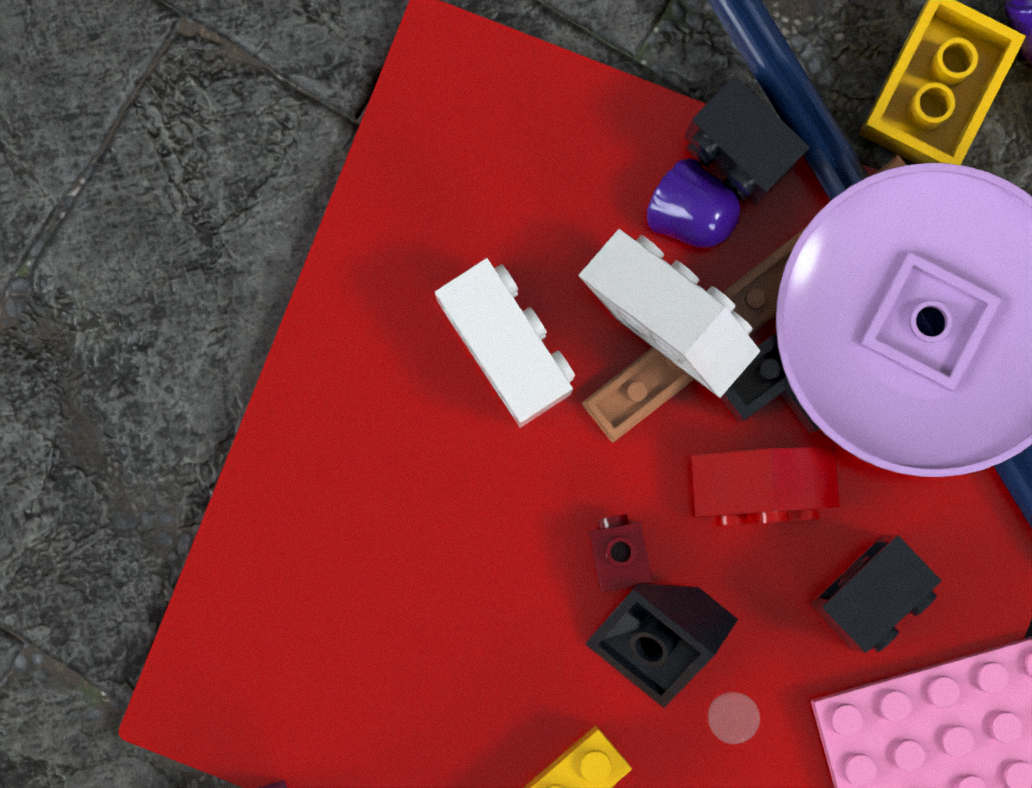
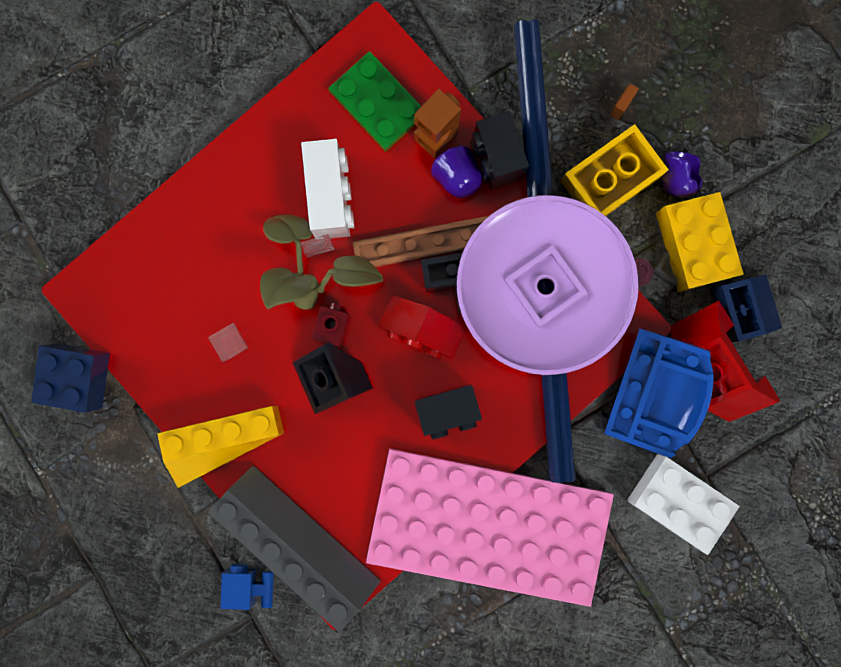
camera: 30 degrees right, 0 degrees up
(467, 665) = (228, 342): none -> clear tile
(502, 156) = (376, 101): none -> green plate
(531, 437) = (317, 245): none -> clear tile
(546, 525) = (283, 286): none -> olive plant
(629, 149) = (437, 122): none -> dark orange arch
(671, 310) = (417, 214): white brick -> none
(733, 717) = (346, 436): clear tile -> none

